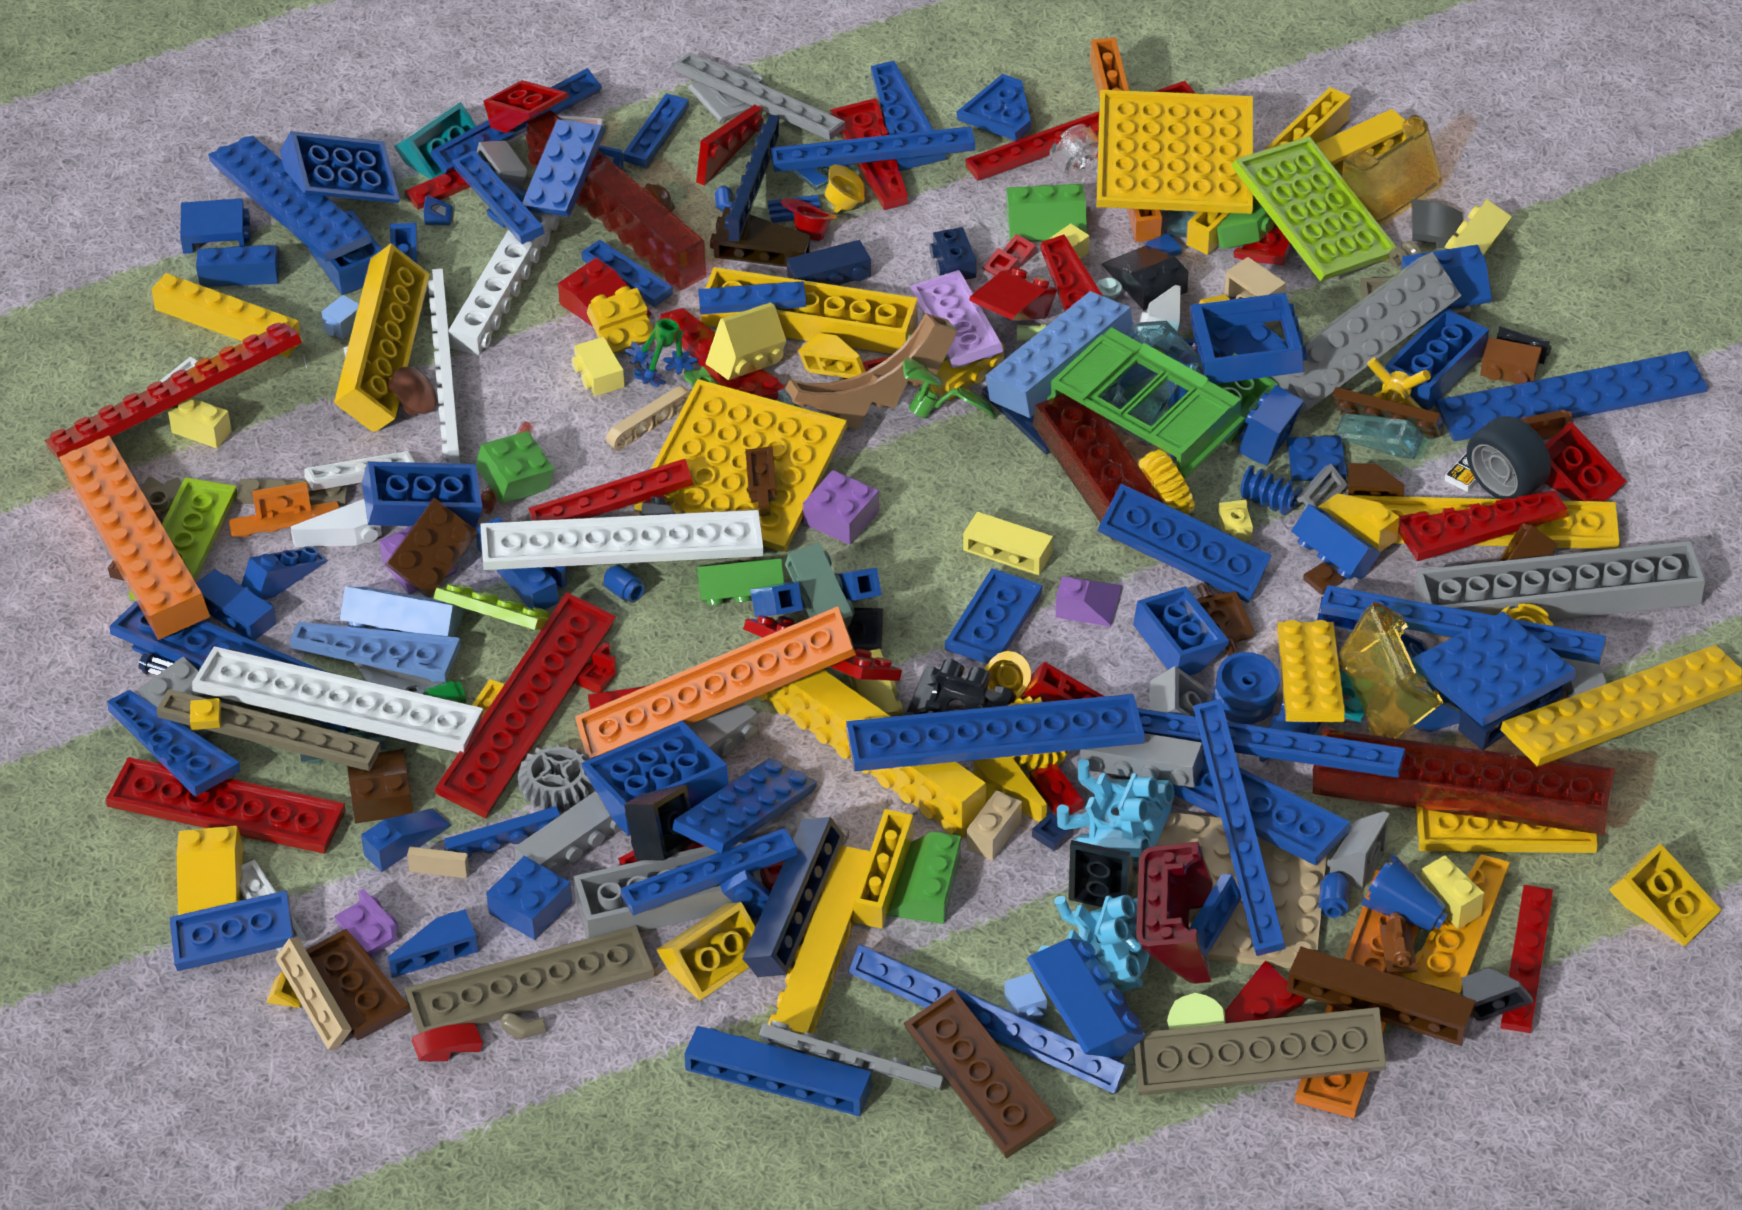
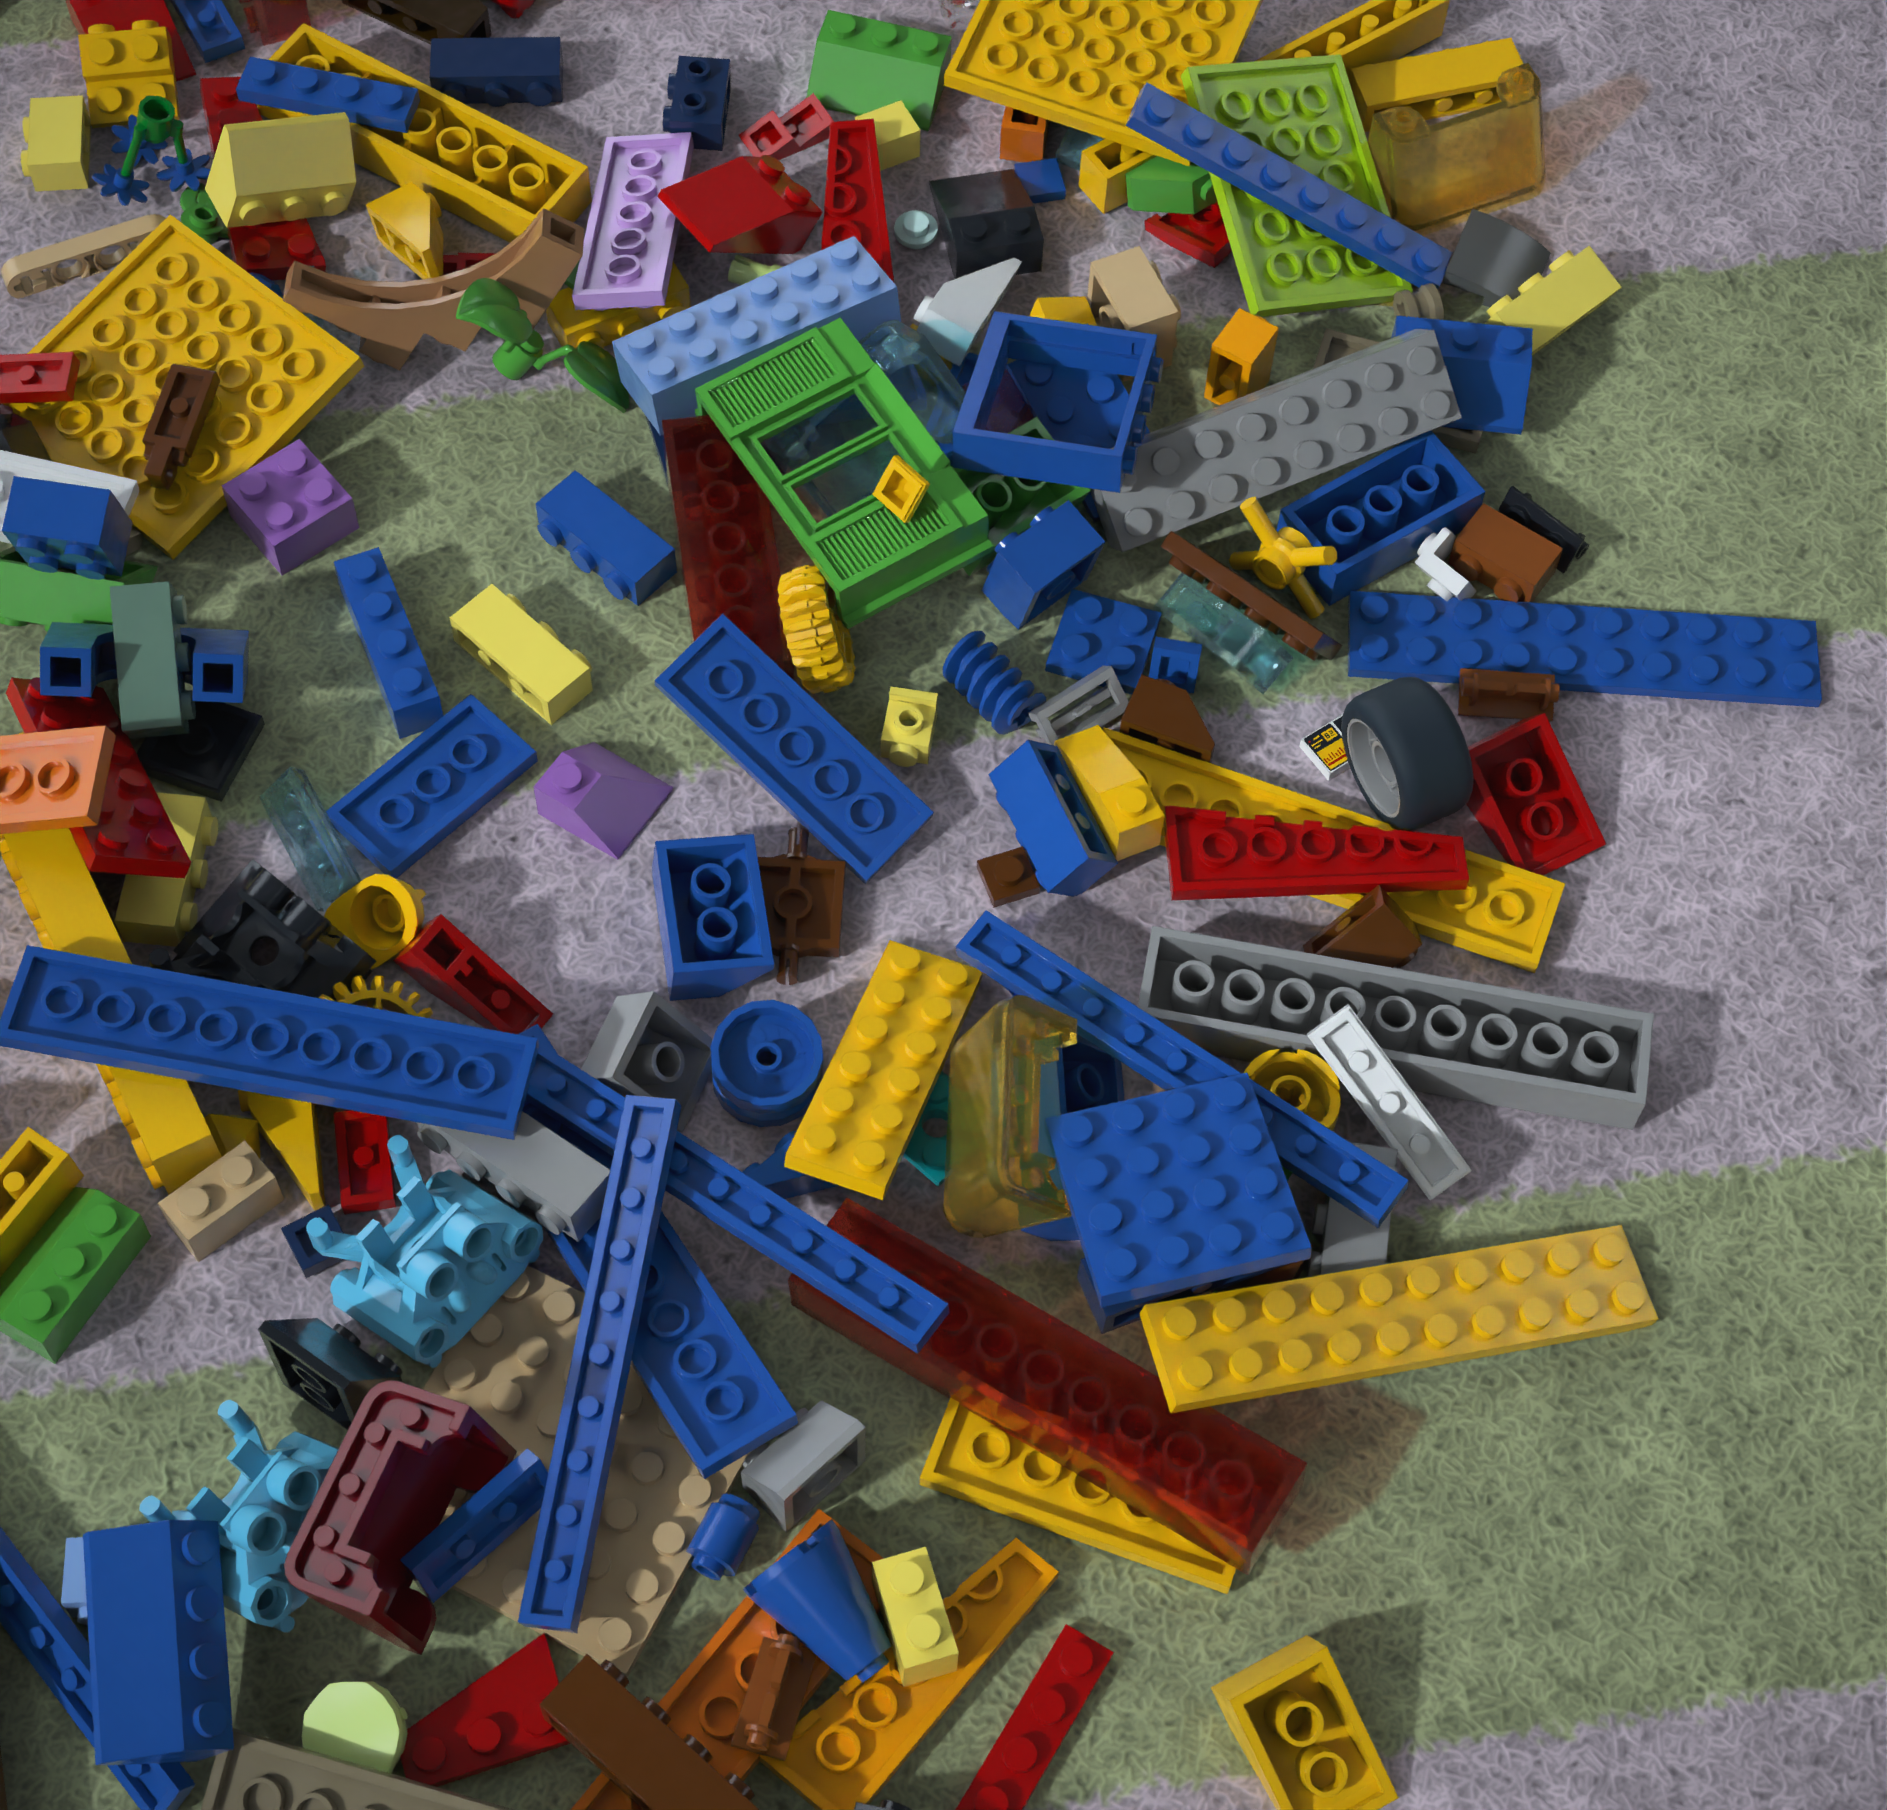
camera: 15 degrees right, 15 degrees up
(748, 532) = (67, 527): none -> blue brick
(933, 555) = (389, 642): none -> blue brick
(935, 650) = (309, 838): none -> clear light blue plate
(1022, 478) = (605, 539): none -> blue brick
(1192, 395) = (901, 488): none -> yellow slope
(1313, 209) = (1287, 187): none -> blue plate
(1325, 301) = (1240, 358): none -> light orange brick
(1361, 453) = (1176, 662): none -> blue plate
(1482, 379) = (1444, 579): none -> white bracket
(1572, 613) = (1389, 1102): none -> white tile

